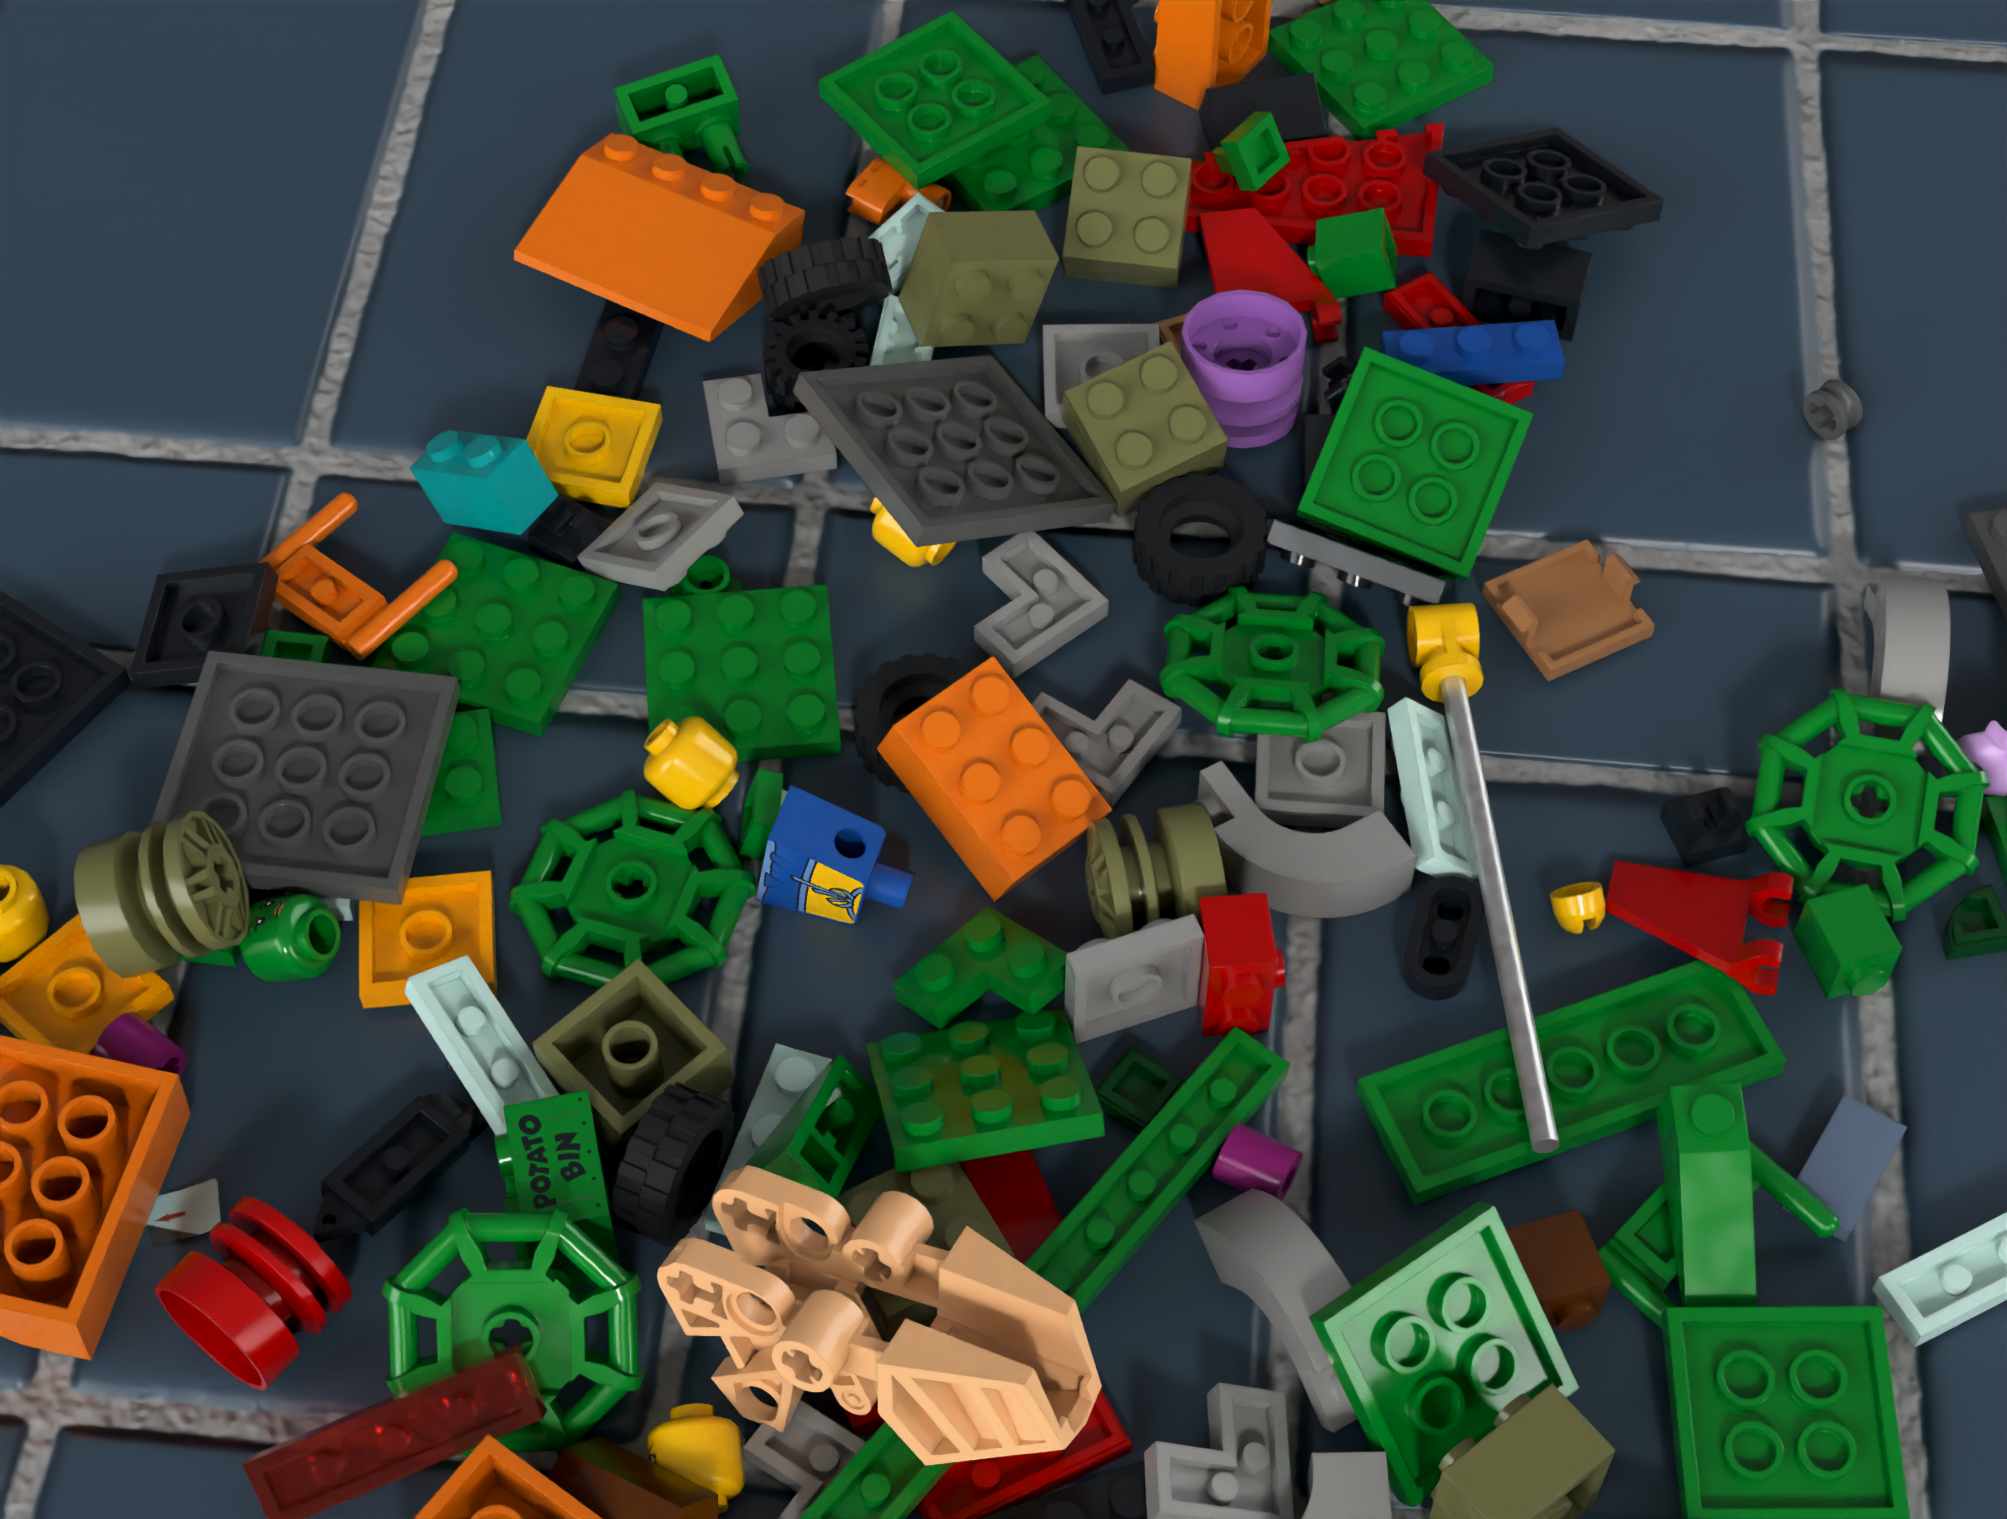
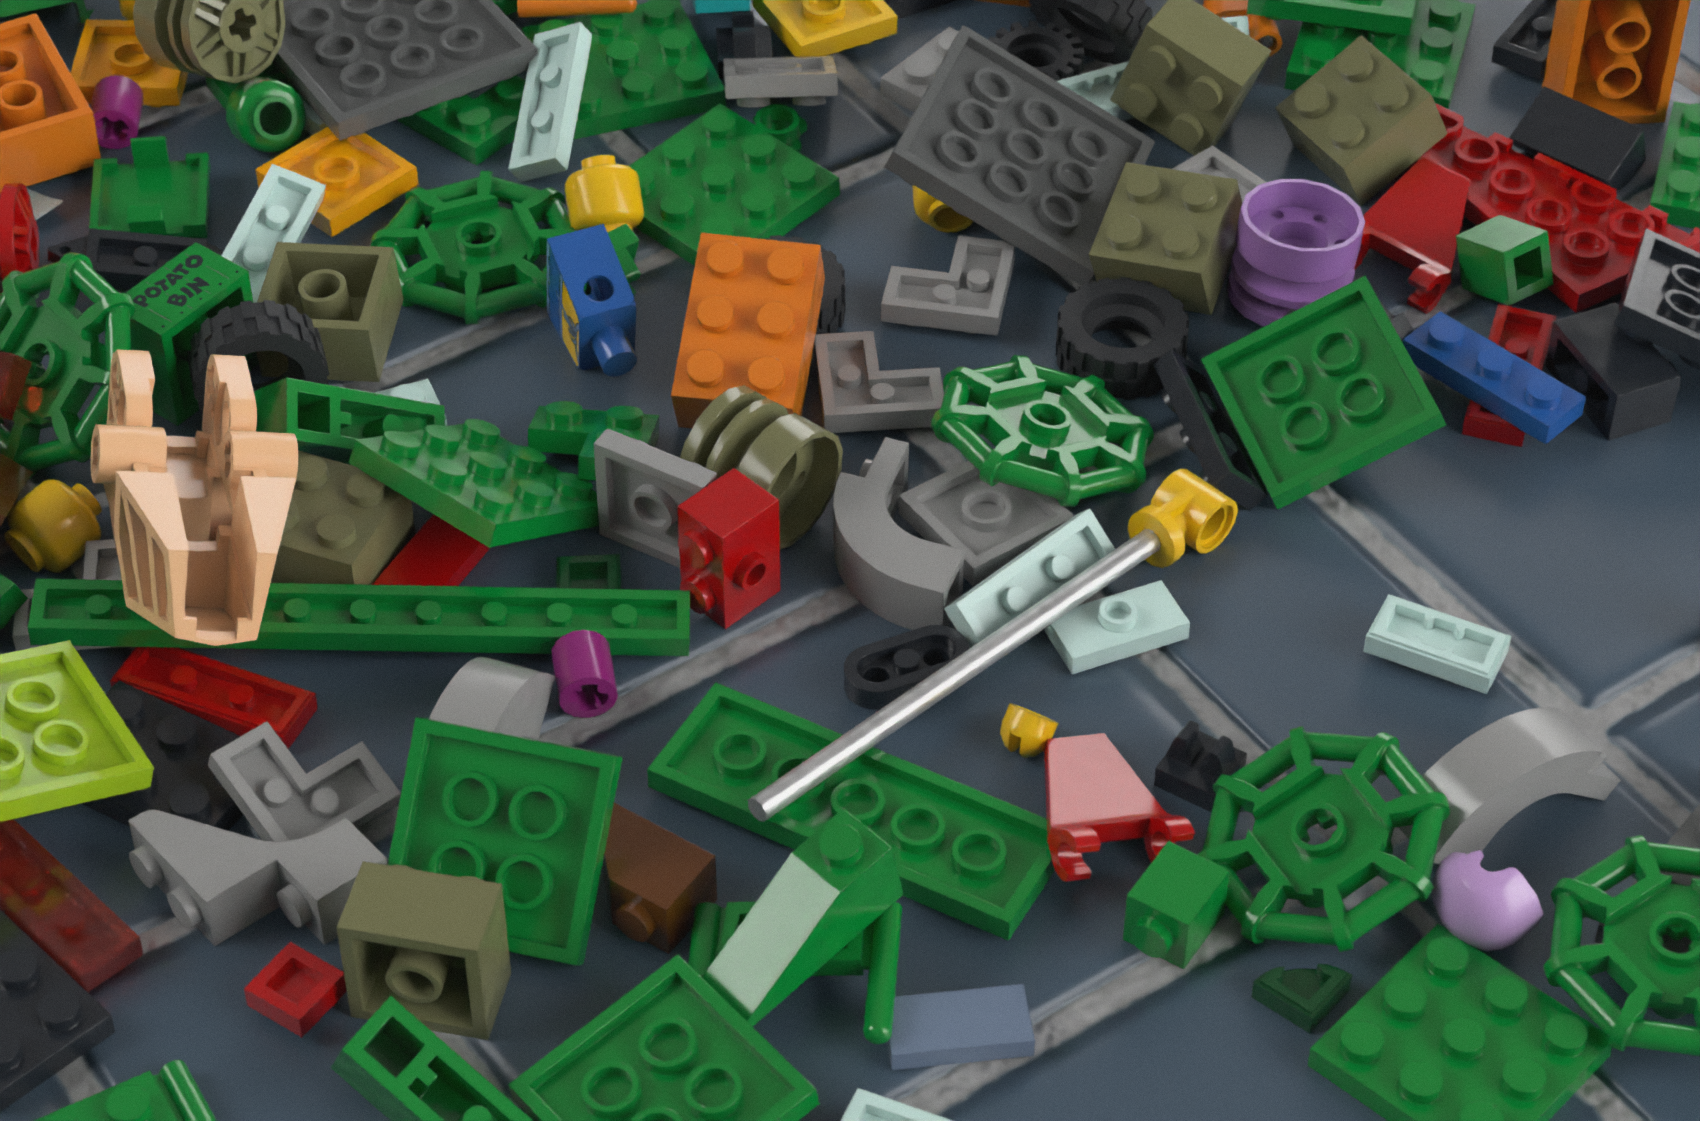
camera: 50 degrees right, 10 degrees down
(293, 1103) = (152, 192): none -> green piece
(519, 715) = (550, 102): none -> light aqua plate
(1252, 152) = (1516, 142): green tile -> none
(1514, 767) = (1118, 627): none -> light aqua plate
(1570, 608) = (1313, 571): medium nougat piece -> none
(1708, 593) = (1437, 643): none -> light aqua plate

